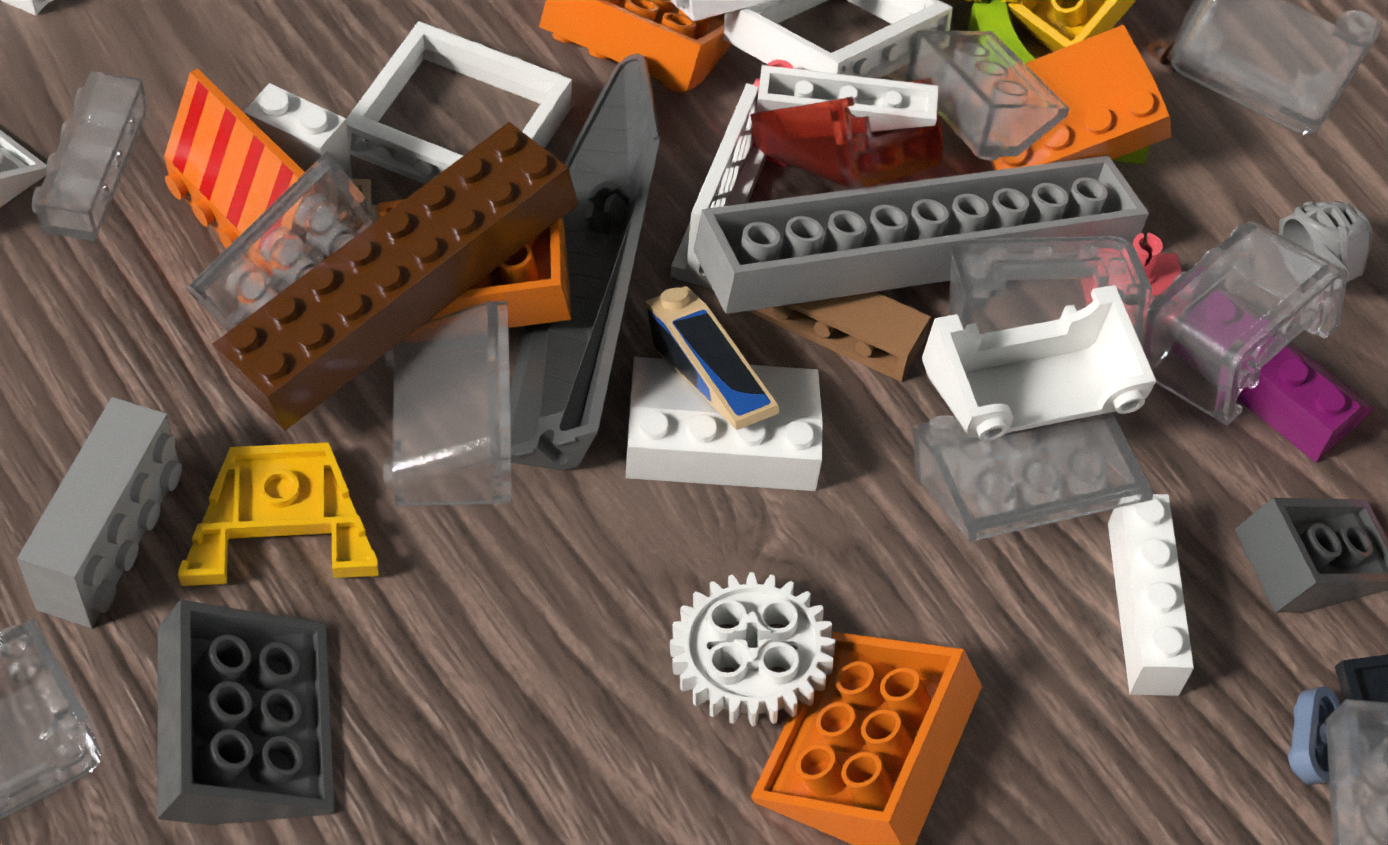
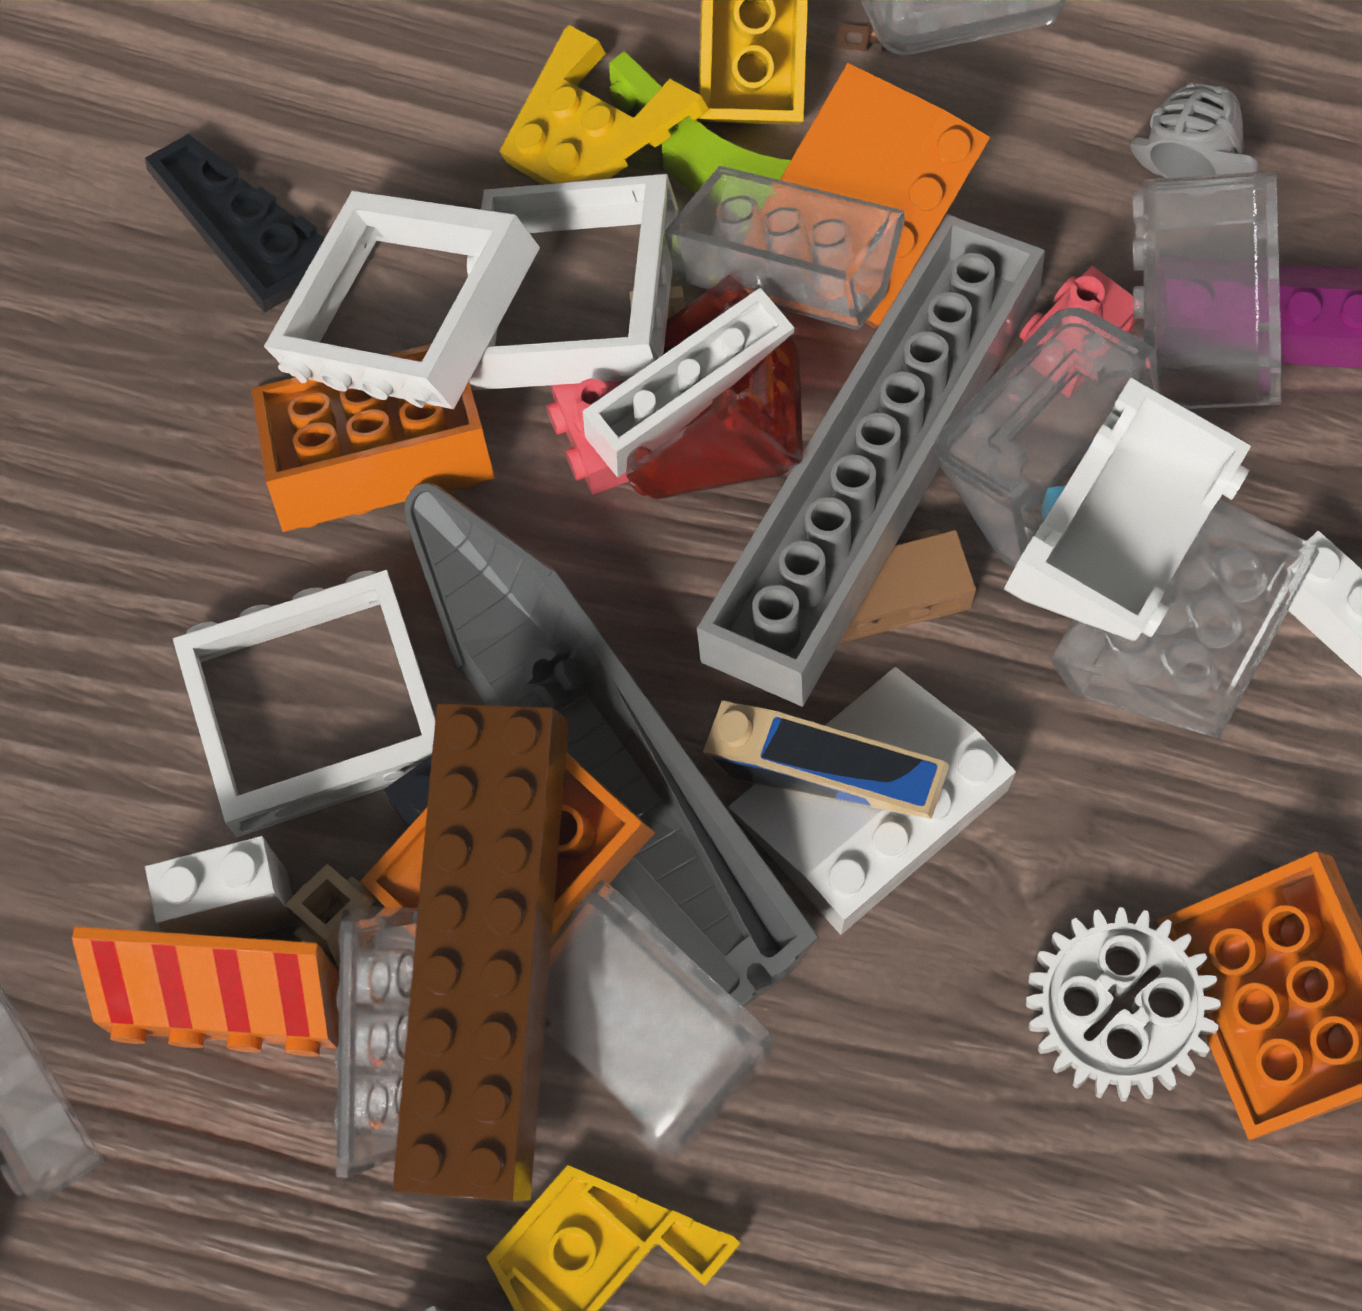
camera: 35 degrees left, 15 degrees up
(727, 183) = (642, 569): white fence -> none

